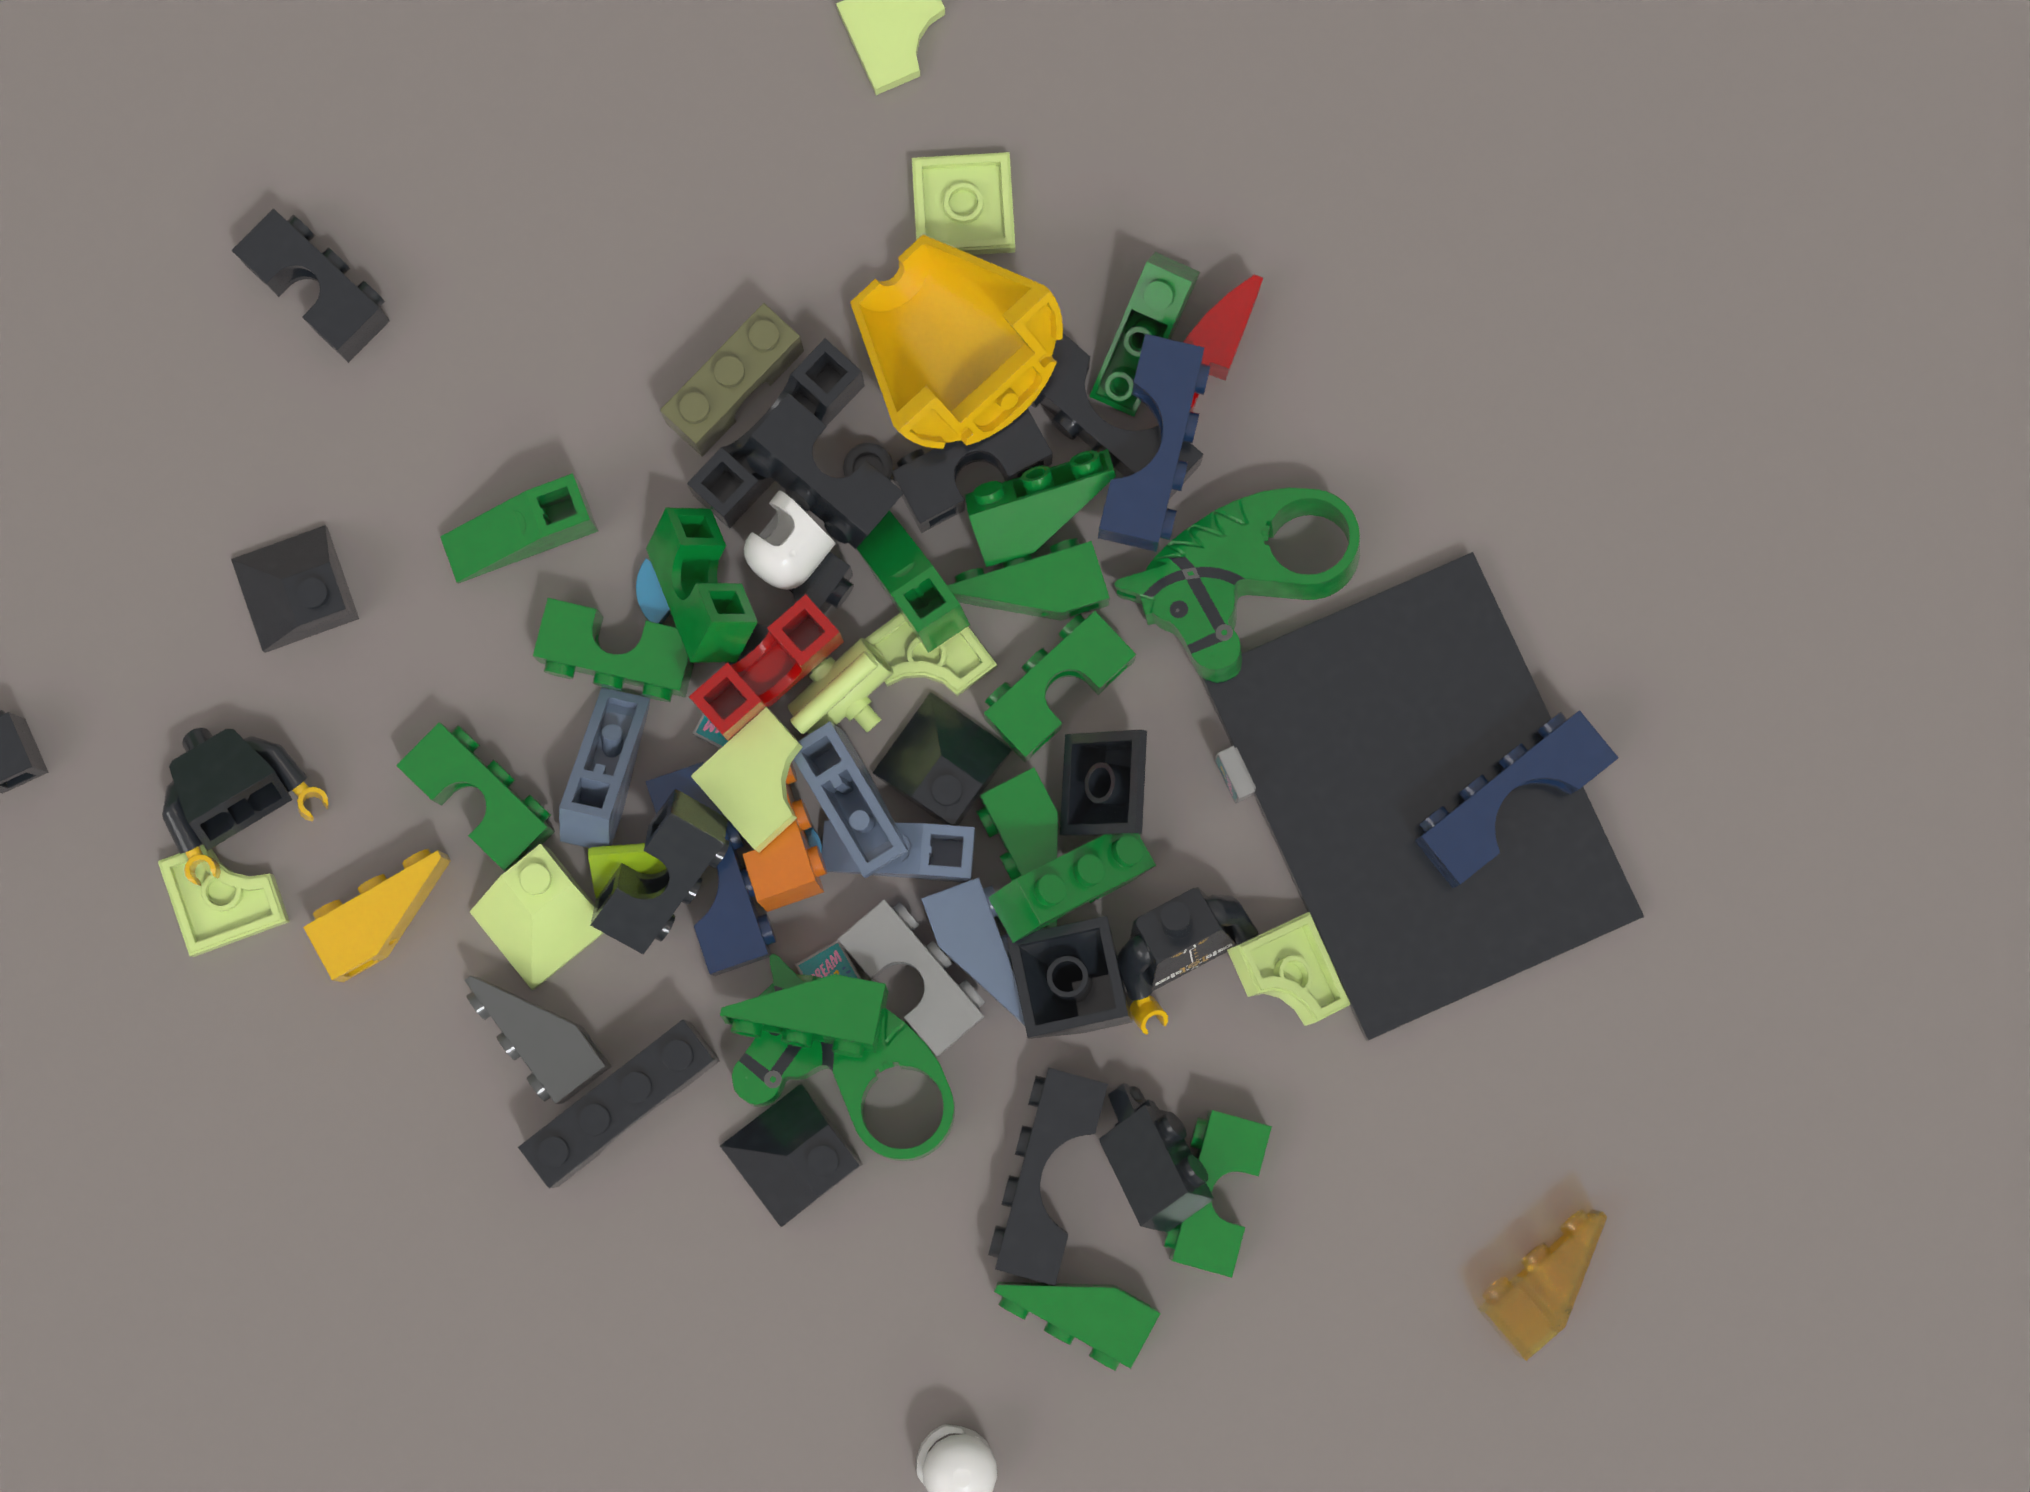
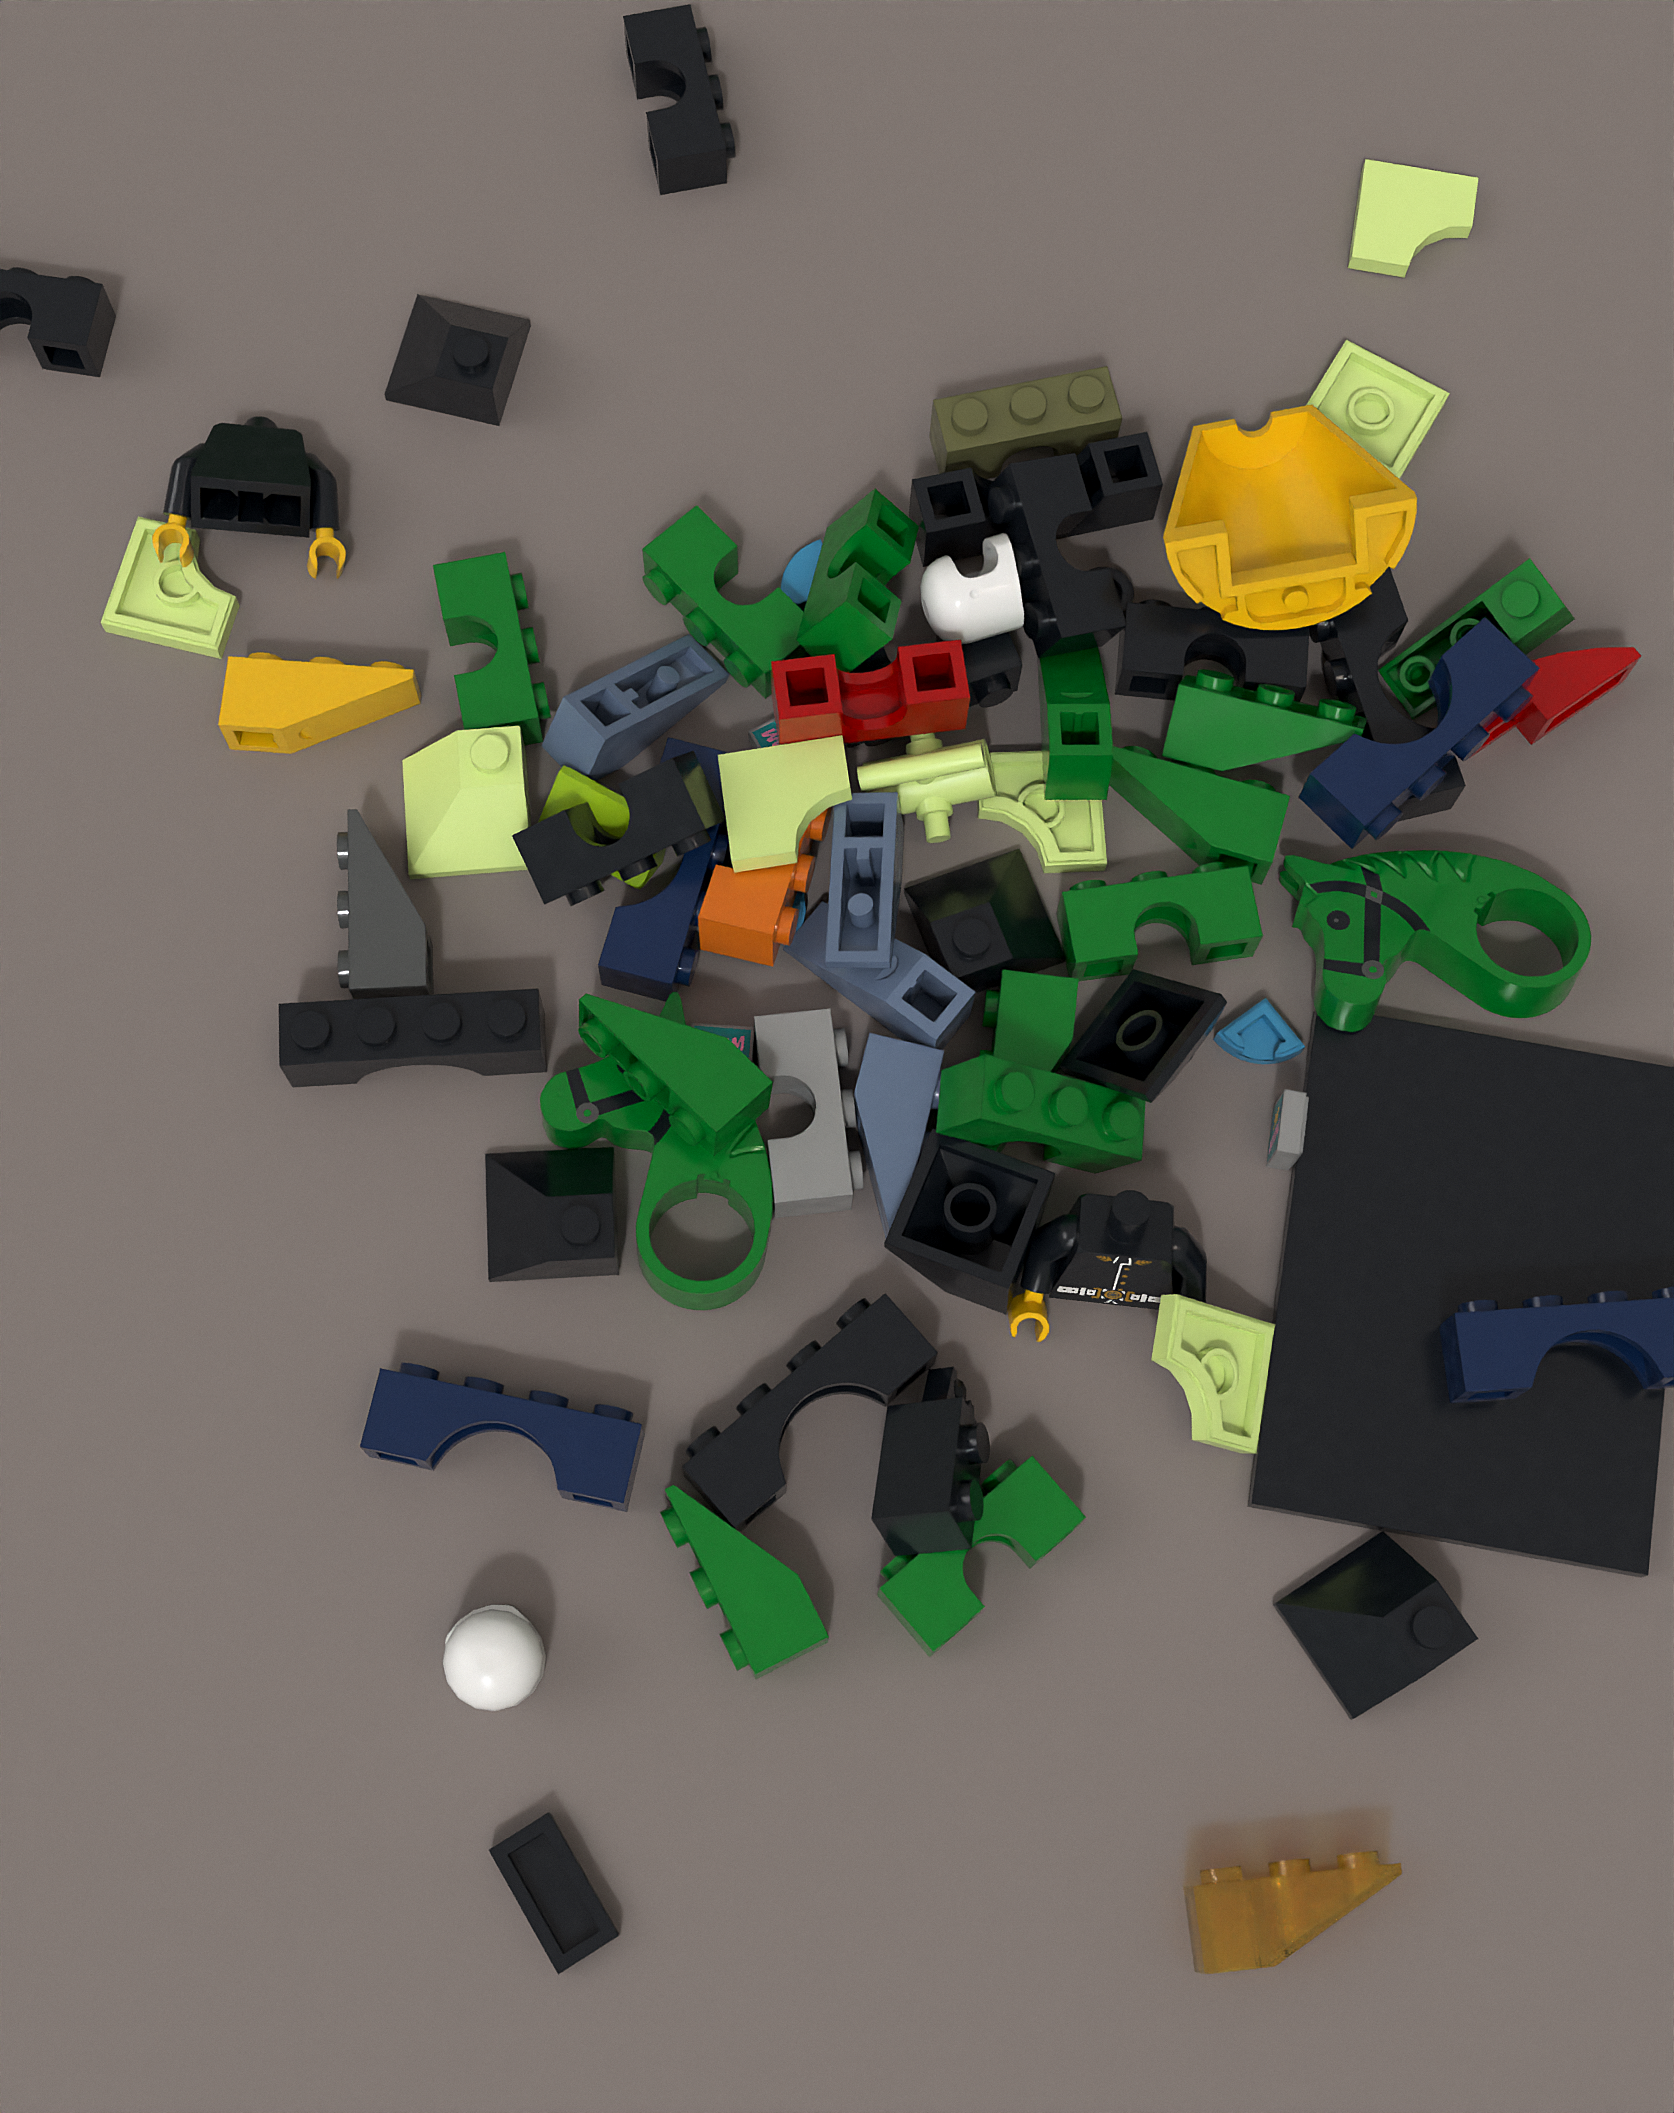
camera: 30 degrees right, 10 degrees down
(520, 528) = (719, 431): green slope -> none
(803, 1350) = (422, 1419): none -> dark blue arch
(1175, 717) = (1260, 1037): none -> dark azure tile
(1492, 1065) = (1374, 1623): none -> black slope

